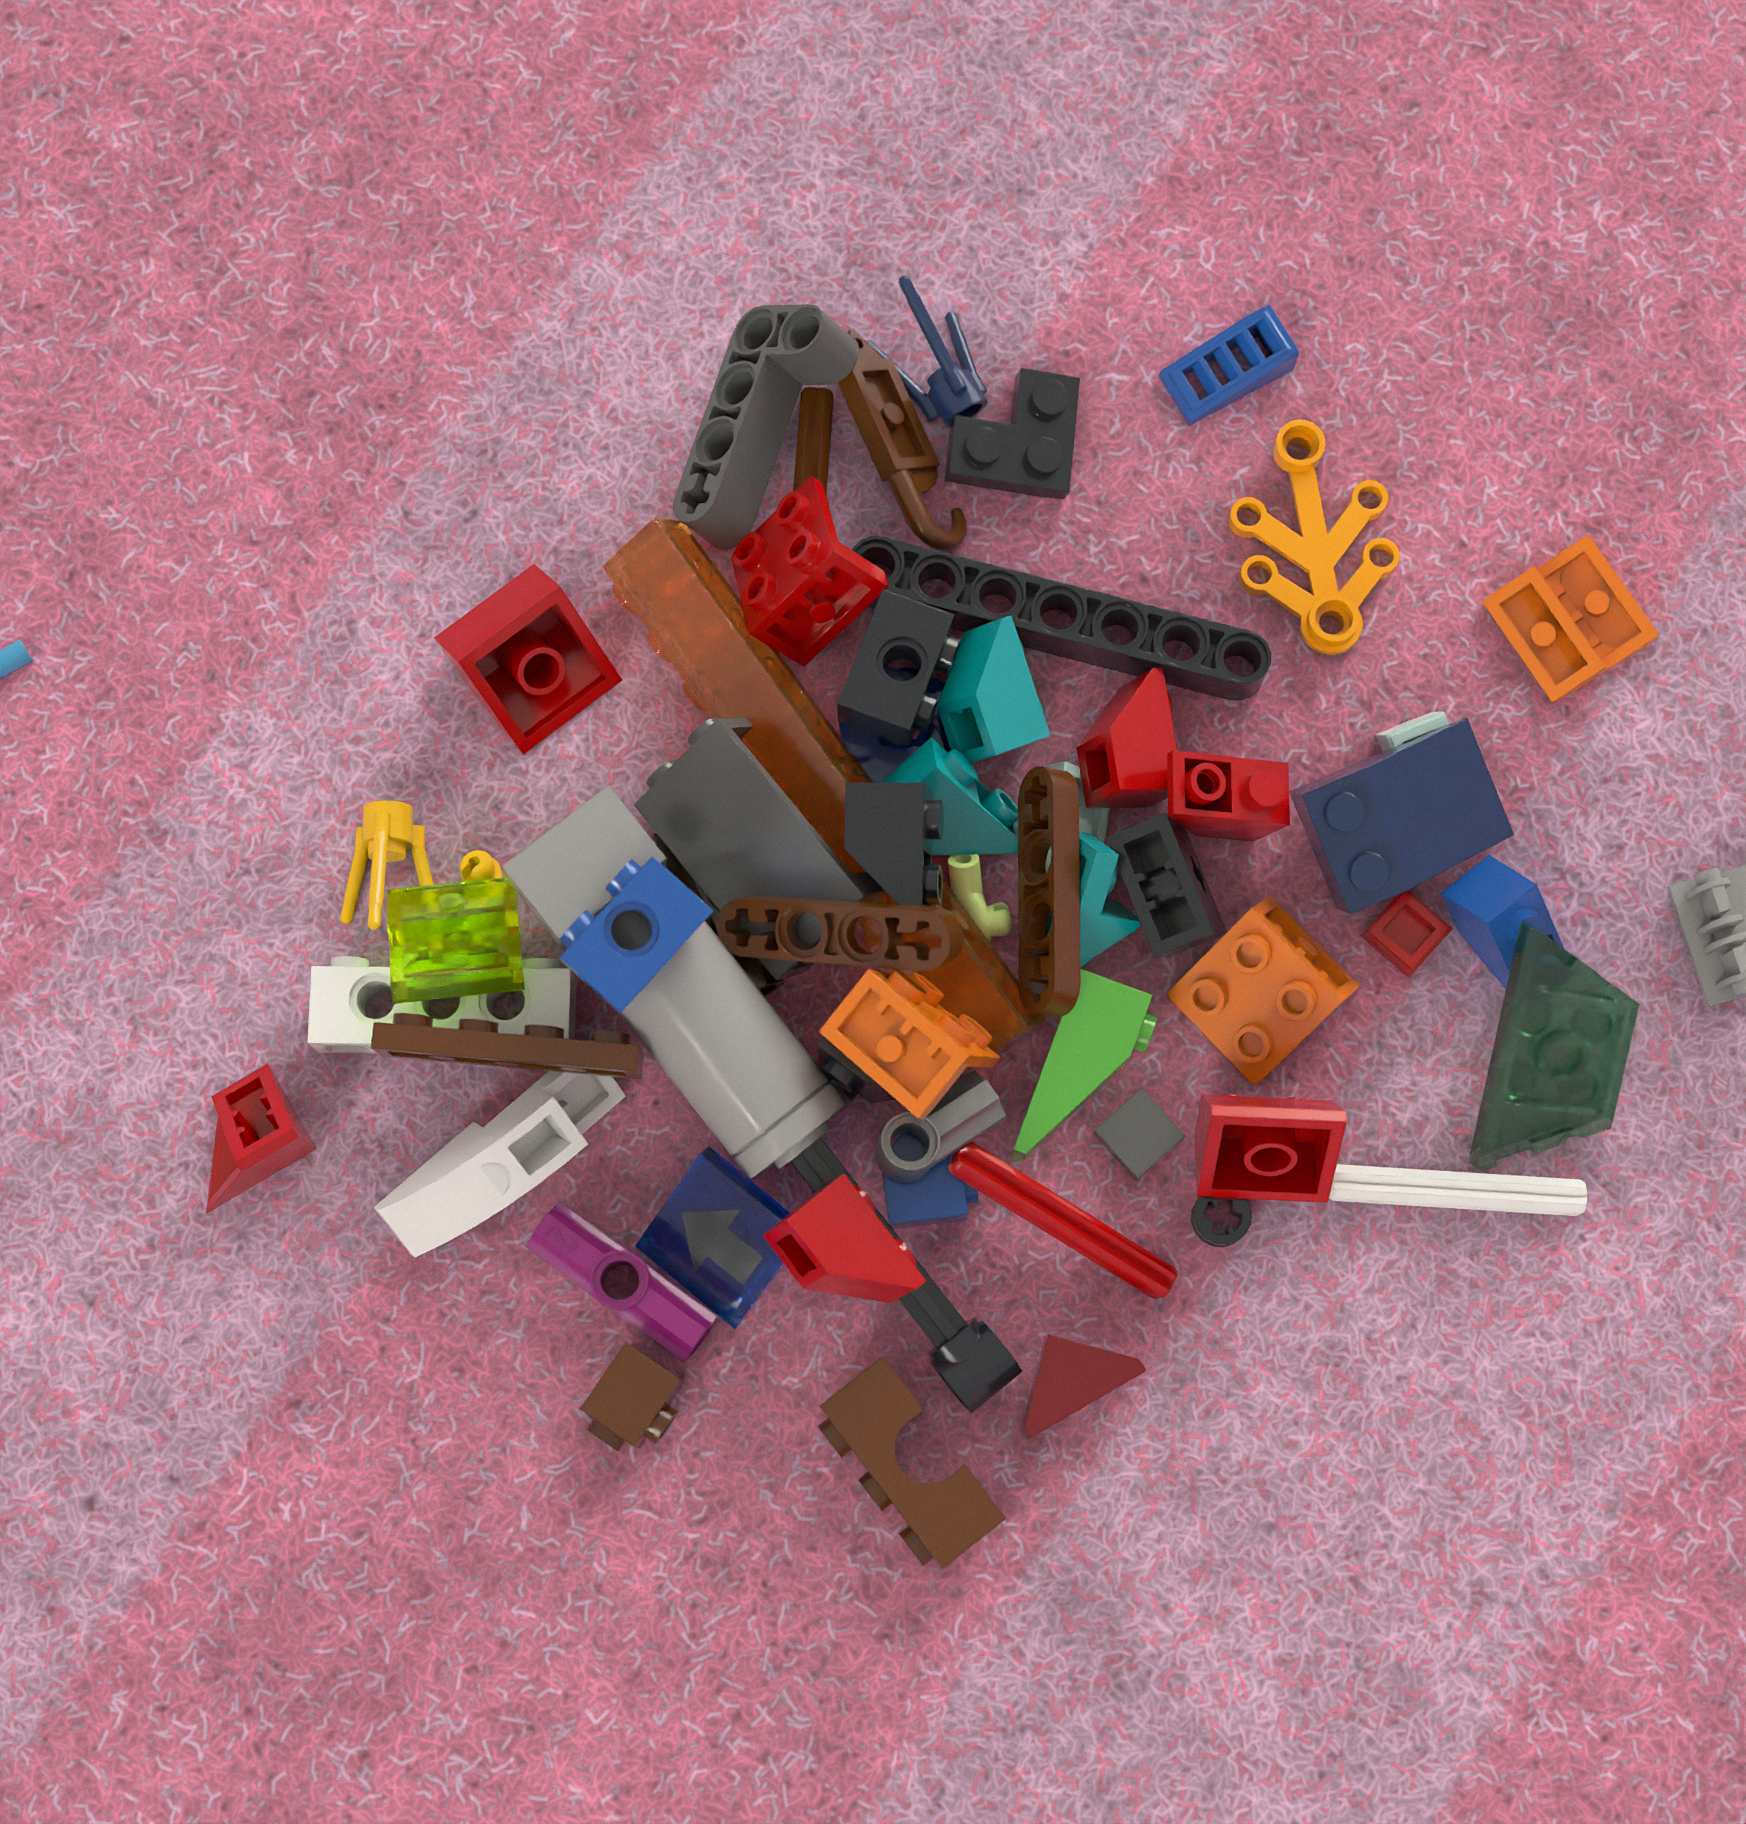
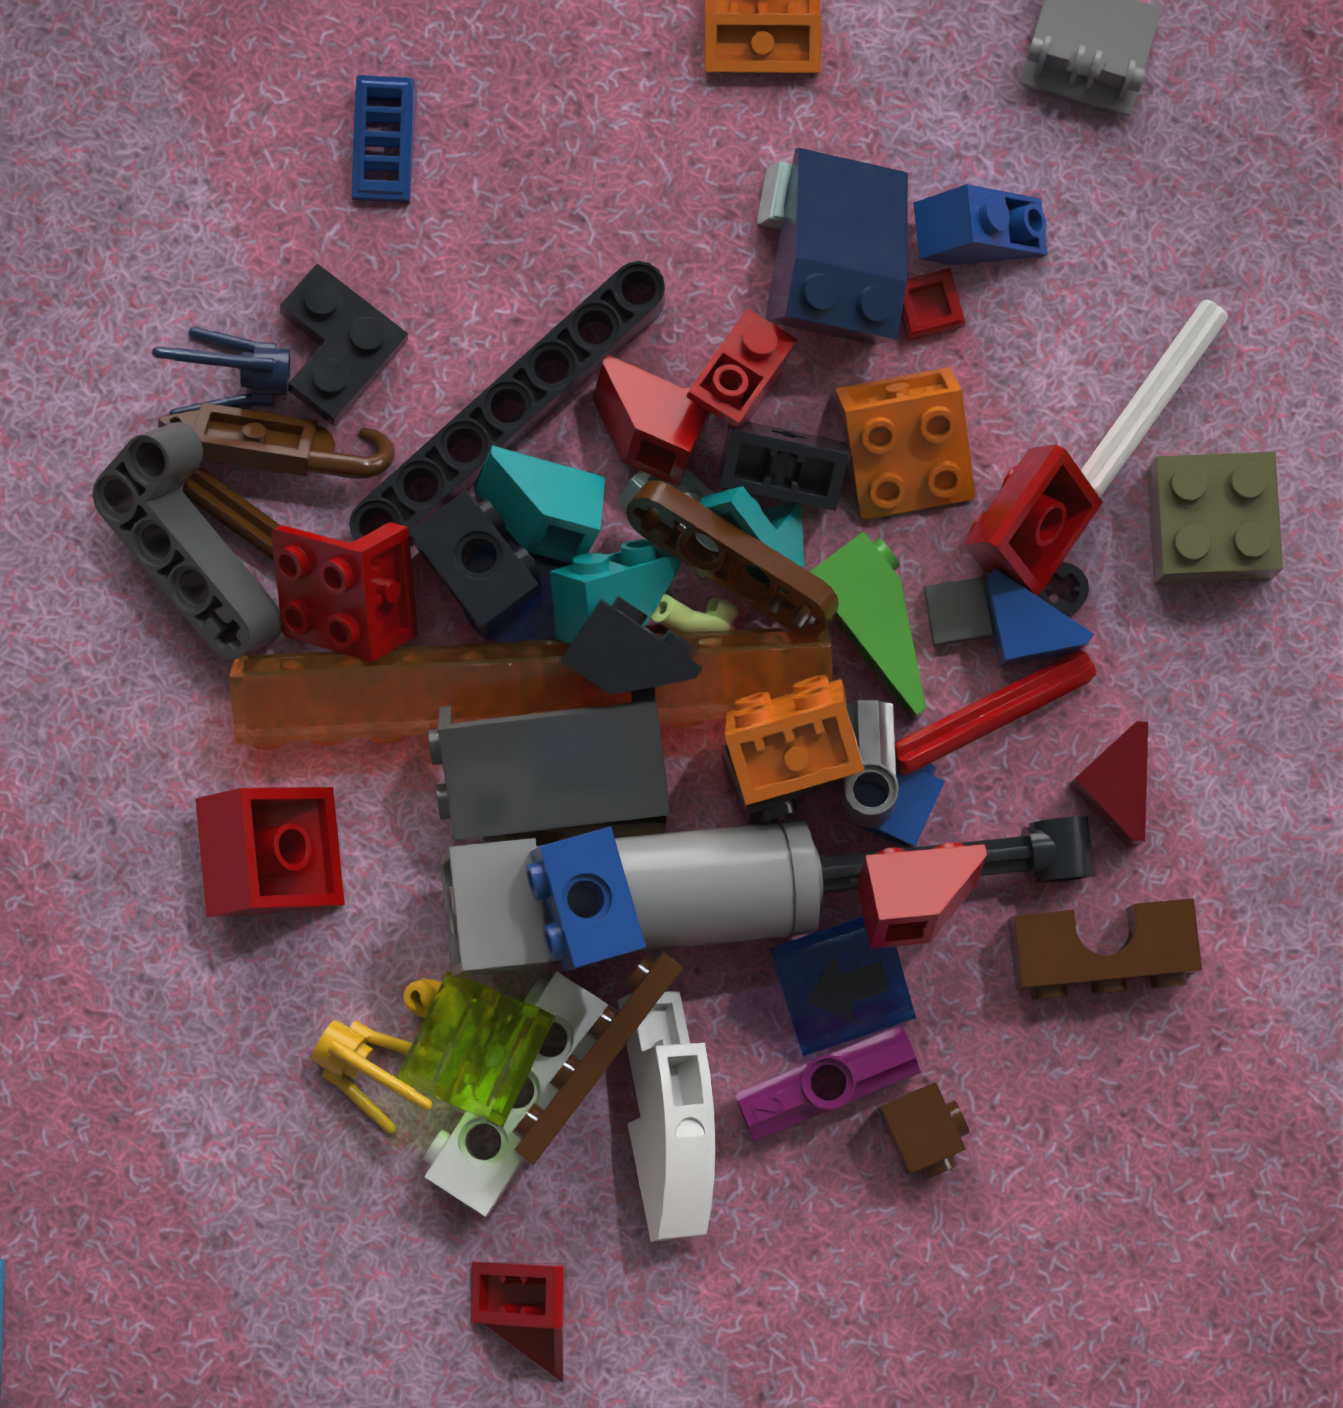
camera: 60 degrees left, 5 degrees up
(838, 937) = (679, 746): reddish brown beam -> none
(1165, 1205) = (1027, 626): none -> blue slope
(1315, 549) = (578, 171): light orange plant -> none
(1383, 1317) = (1214, 518): none -> olive brick
(1553, 1053) = (1097, 258): clear green wing -> none

